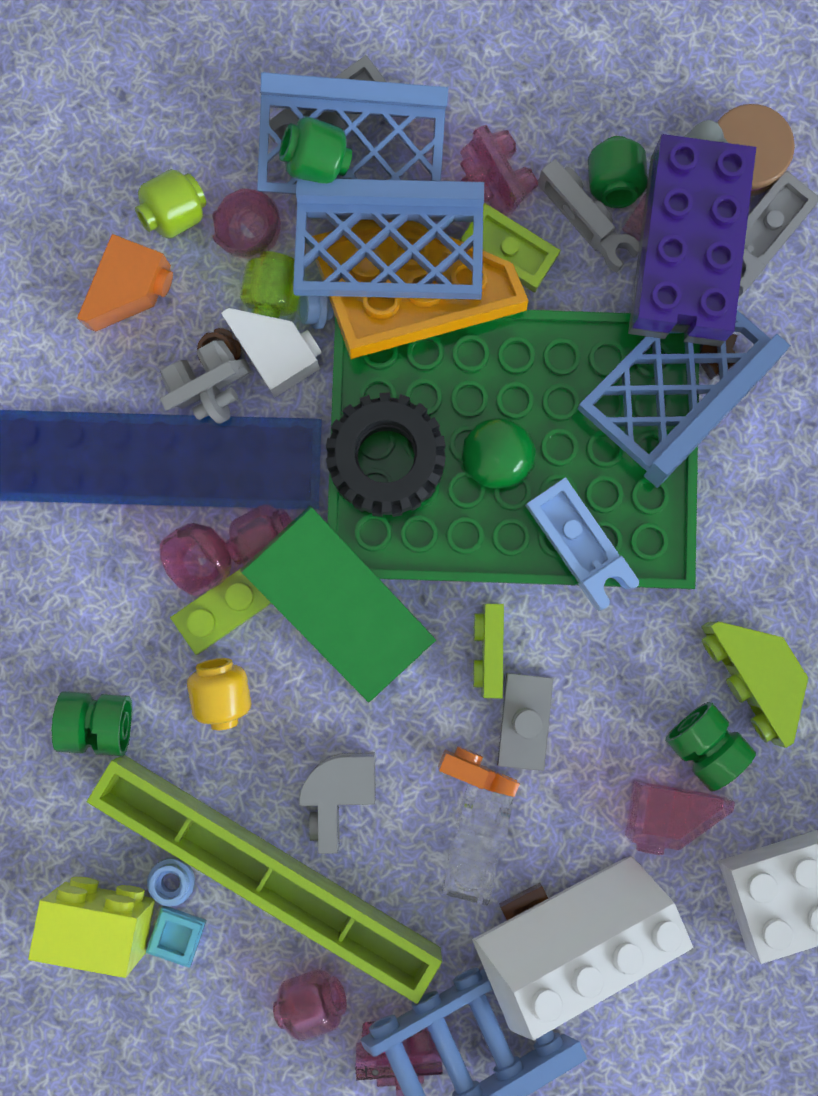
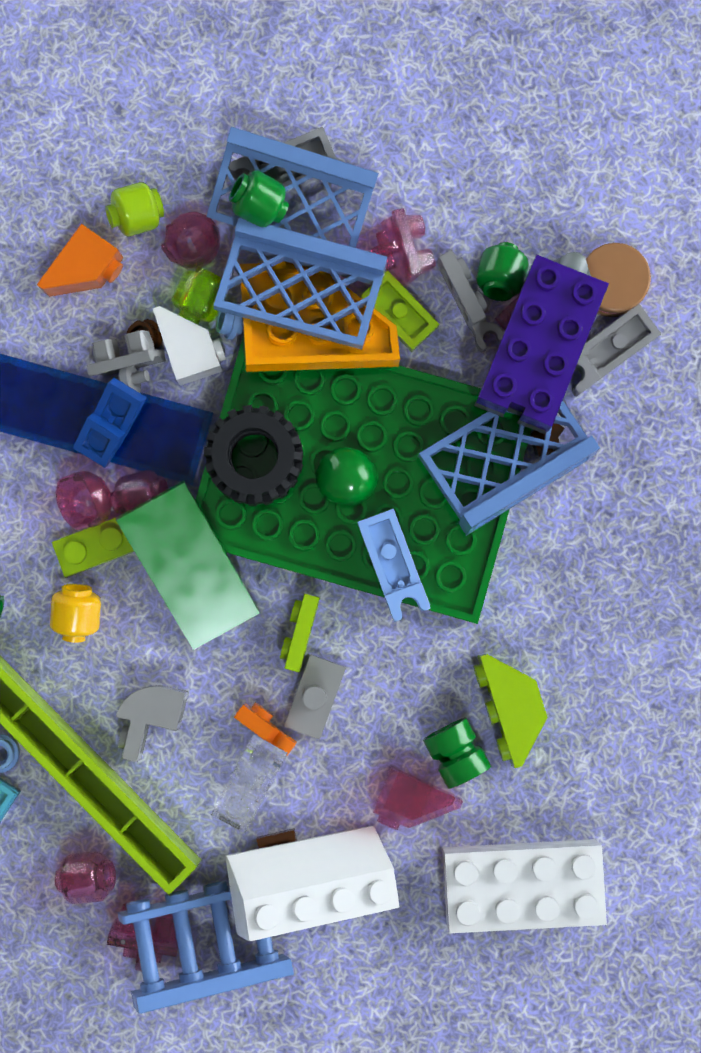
camera: 15 degrees right, 0 degrees up
(204, 459) = (109, 423): none -> blue slope

